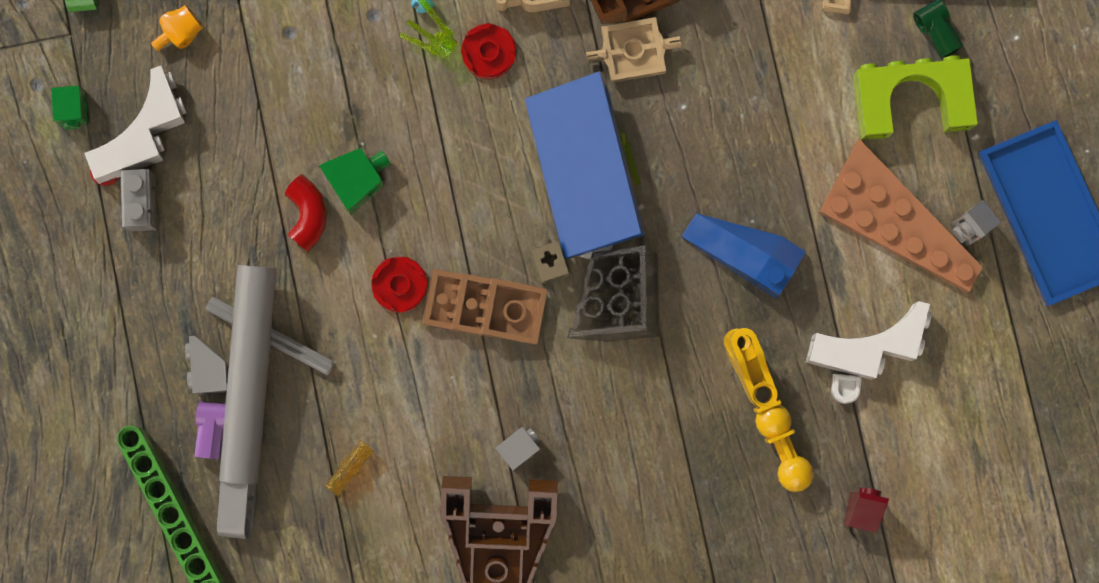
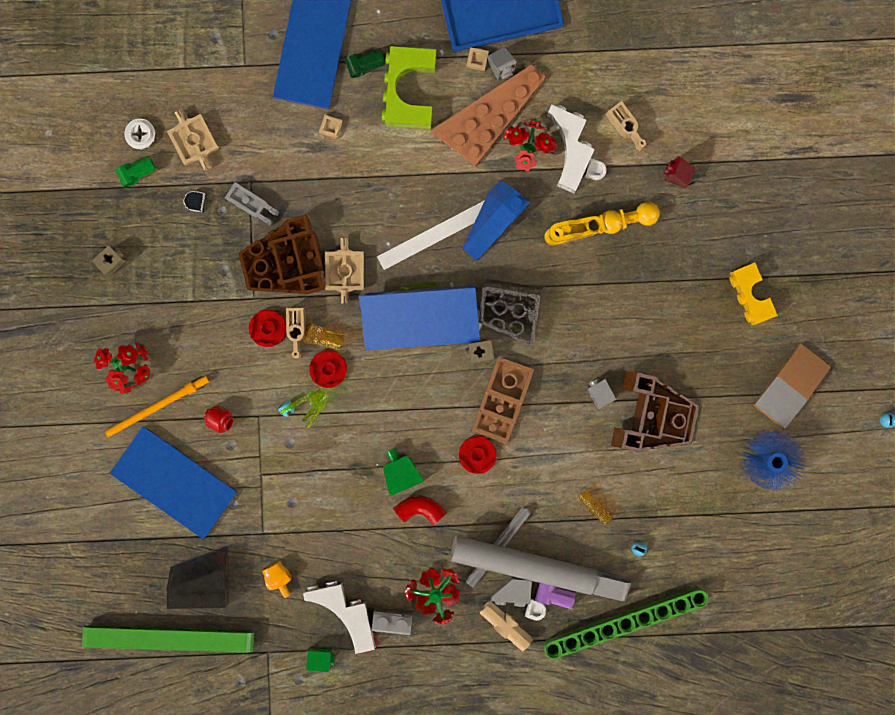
camera: 80 degrees left, 5 degrees up
(156, 366) = (506, 625): none -> tan piece
(174, 247) = (428, 599): none -> red plant
(185, 406) = (535, 610): none -> white tile
(303, 547) = (640, 544): none -> medium azure hinge
(532, 30) = (319, 336): none -> clear yellow piece
(704, 164) = (429, 237): none -> white sticker
(845, 276) = (544, 143): none -> red plant
(932, 401) = (619, 117): none -> tan piece
(975, 188) = (477, 59): none -> tan tile

